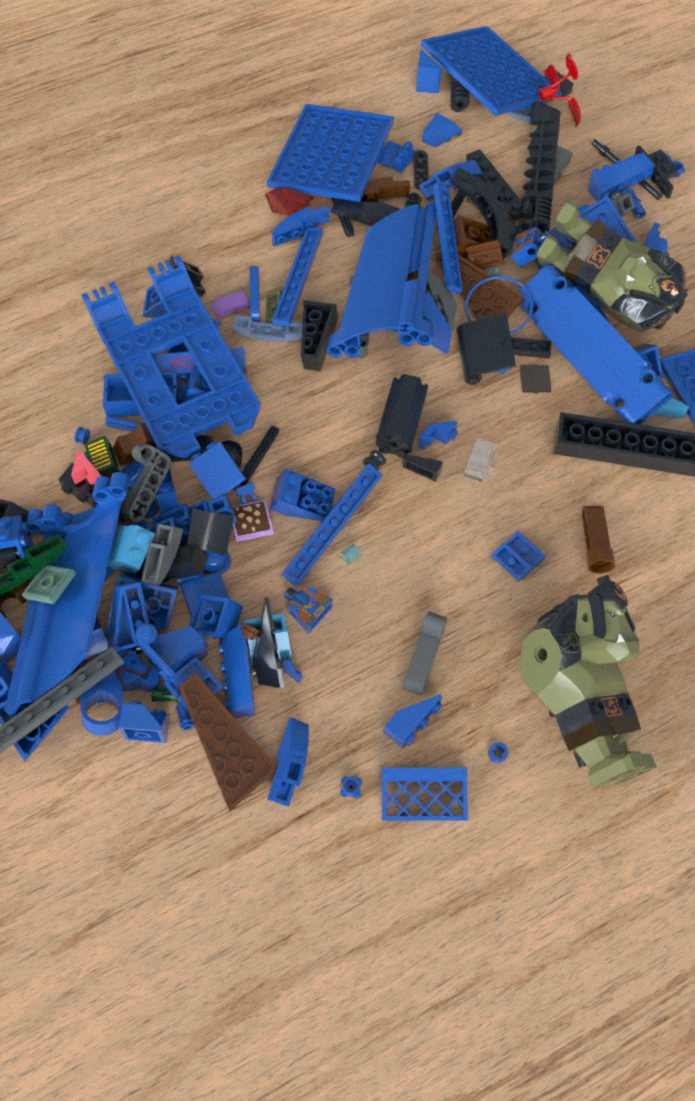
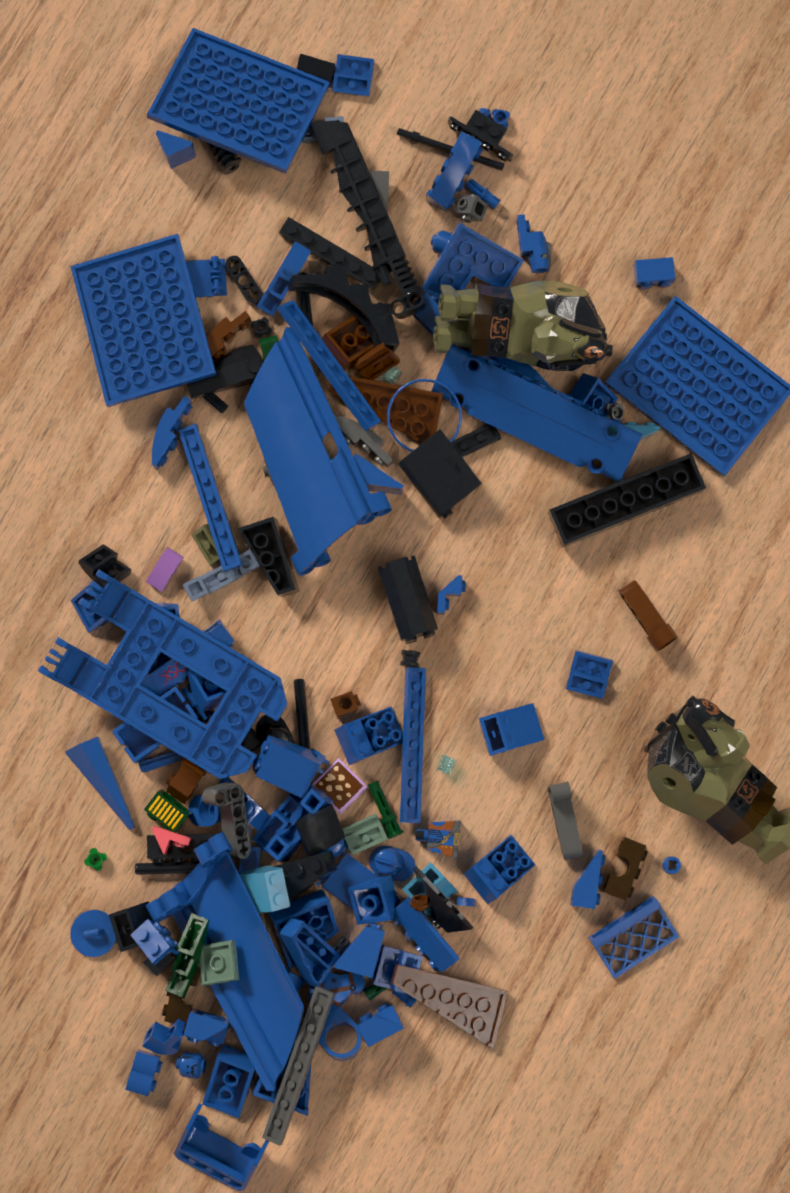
camera: 30 degrees left, 20 degrees up
(20, 458) = (97, 865): none -> green plate
(65, 498) = (165, 868): none -> black axle
(74, 397) = (95, 766): none -> blue wedge
(82, 435) = (131, 798): blue bush -> none
(149, 642) = (343, 963): blue door -> none
(161, 554) = (298, 880): dark grey slope -> none
(244, 567) = (364, 834): none -> sand green plate
(251, 600) = (393, 862): none -> blue piece
(254, 293) = (180, 543): blue beam -> none
(274, 566) = (388, 818): none -> dark green pin
(286, 200) = (141, 413): clear red slope -> none
(292, 762) = (517, 979): blue slope -> none
(295, 457) = (336, 703): none -> reddish brown brick
(338, 661) = (499, 869): none -> blue slope
(348, 781) = (578, 968): blue plate -> none
(422, 556) = (511, 729): none -> blue slope
(423, 466) = (464, 635): black slope -> none
(440, 131) = (232, 215): blue slope -> none
(440, 739) = (633, 853): none -> dark brown arch
(481, 459) = (503, 597): clear brick -> none
(527, 245) = (415, 329): blue torso -> none
(535, 379) = (501, 472): clear smoke piece -> none
(550, 91) = (322, 101): red plant -> none
(585, 97) = (353, 75): none -> blue slope

